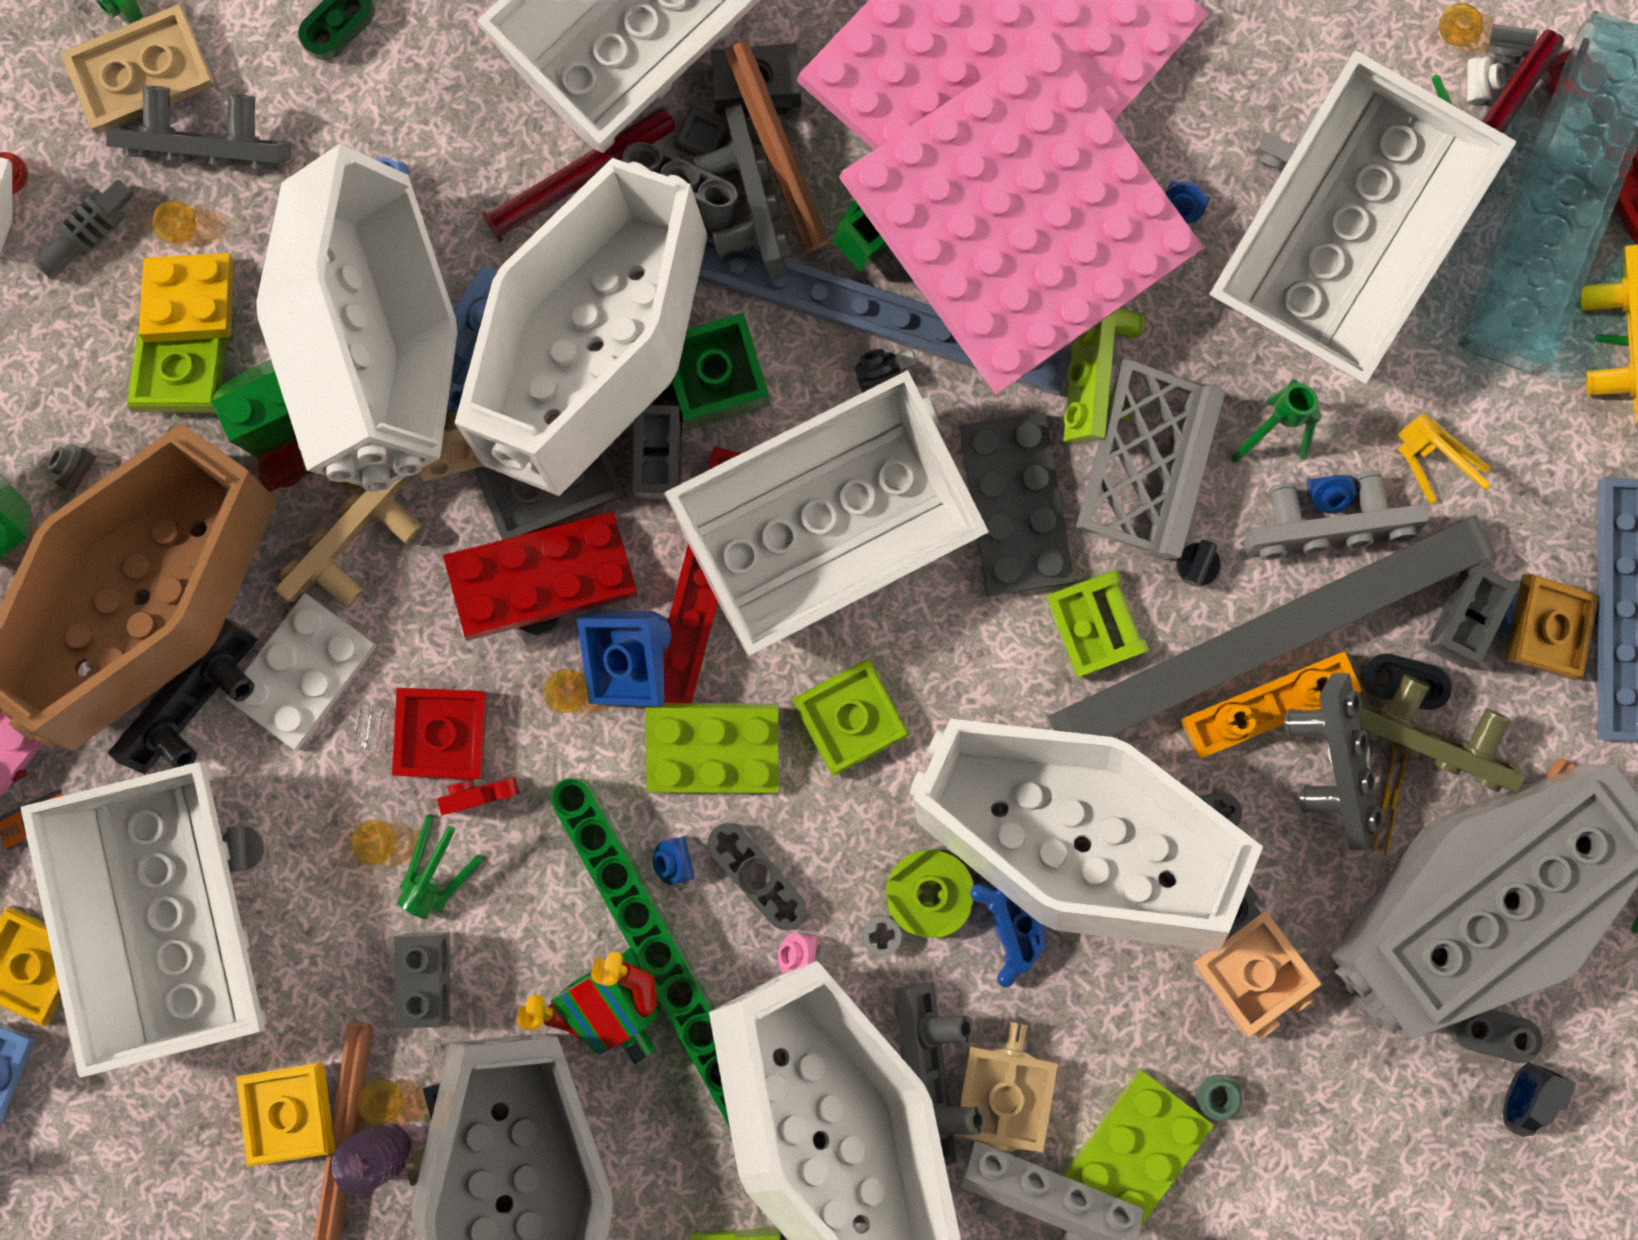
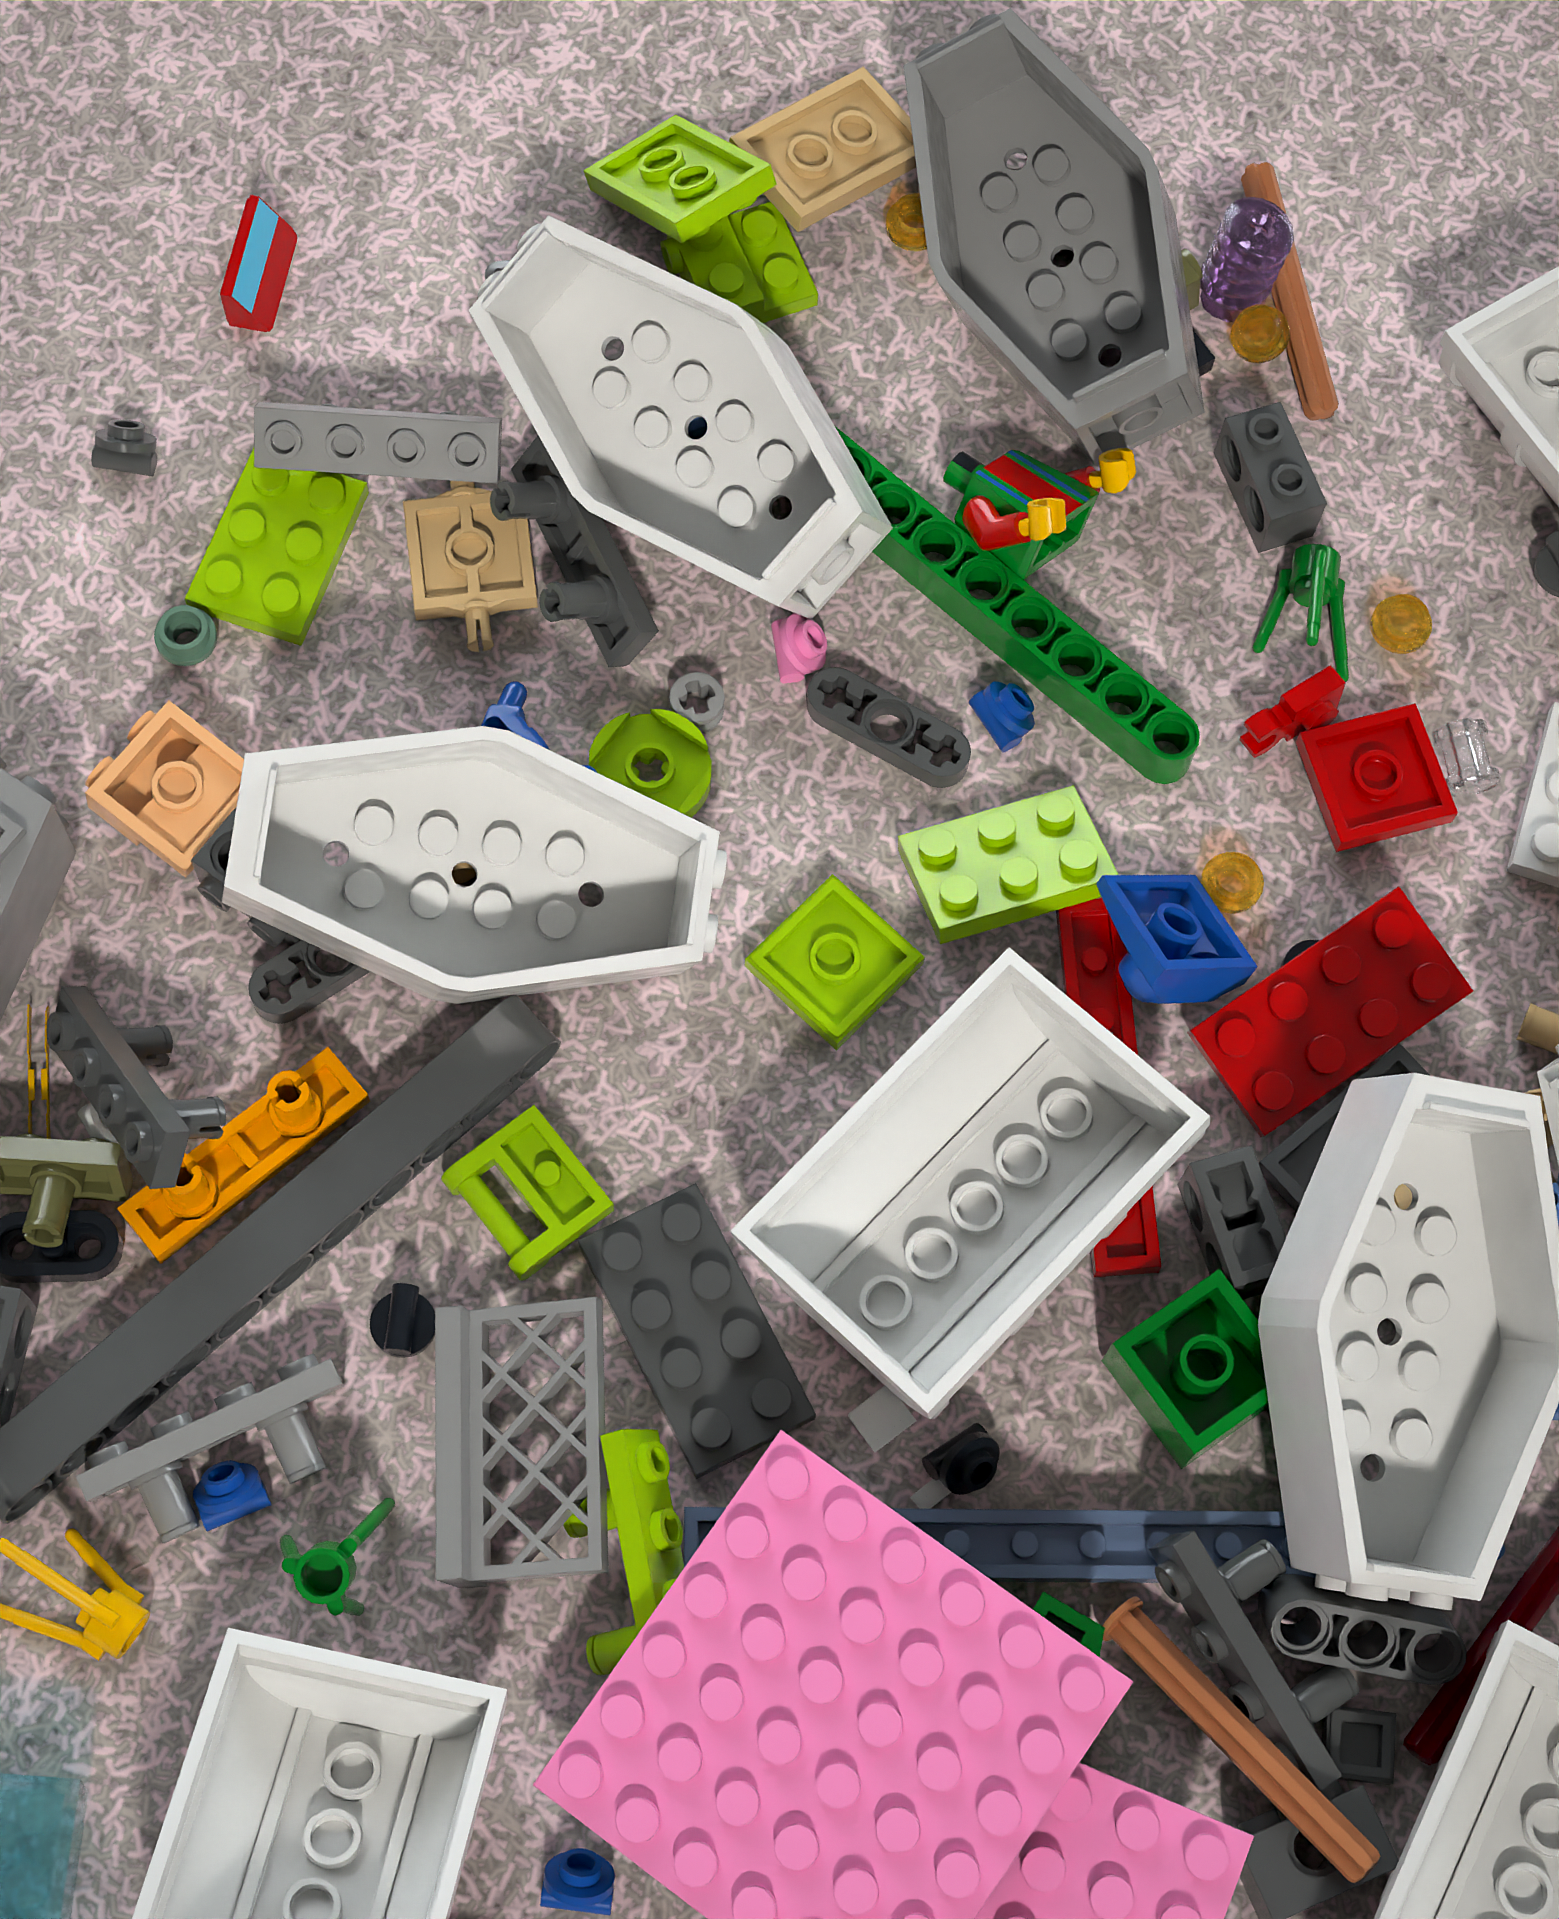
camera: 155 degrees right, 15 degrees down
(285, 1114) = (1369, 288): yellow tile -> none

